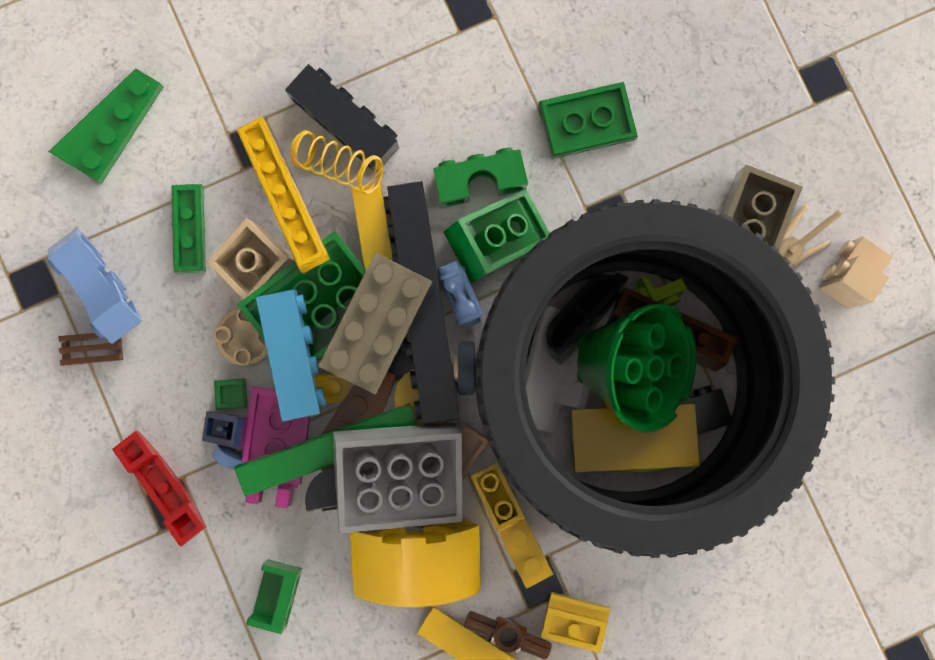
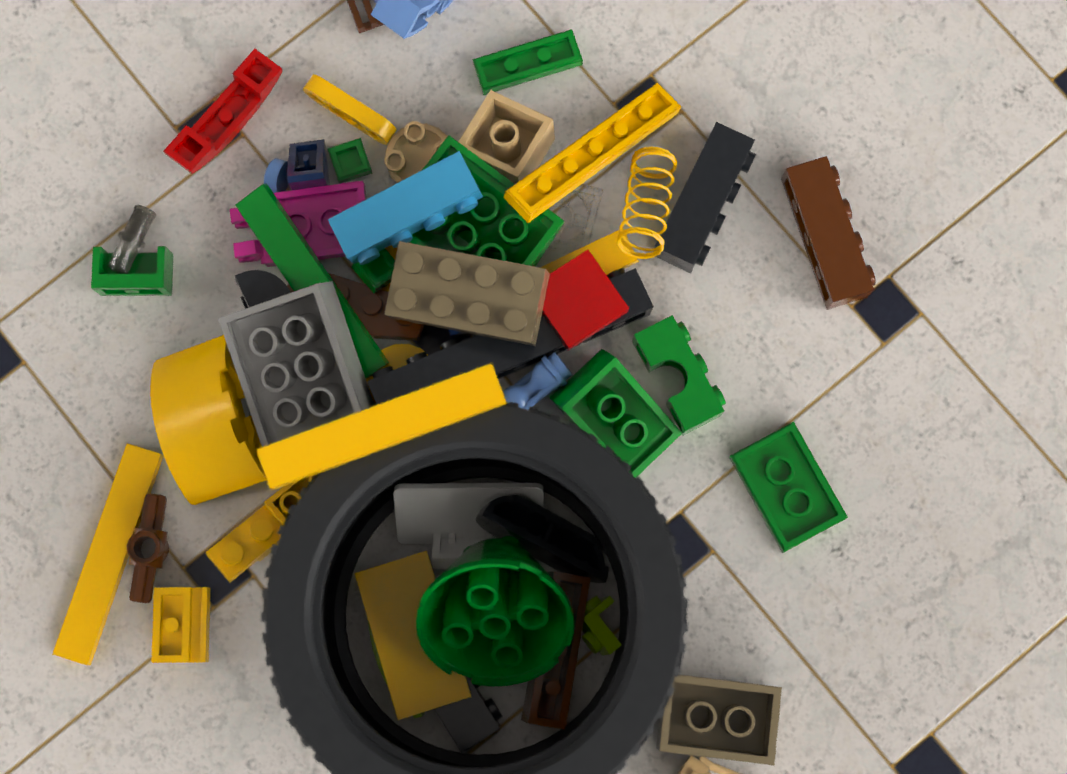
camera: 80 degrees right, 5 degrees down
(187, 383) = (349, 109): none -> yellow beam
(247, 591) = (131, 239): none -> clear smoke axle
(334, 392) = (376, 273): none -> green tile
(397, 31) = (828, 233): none -> reddish brown brick
(403, 235) = (581, 300): none -> red tile
(488, 414) = (381, 426): none -> yellow tile

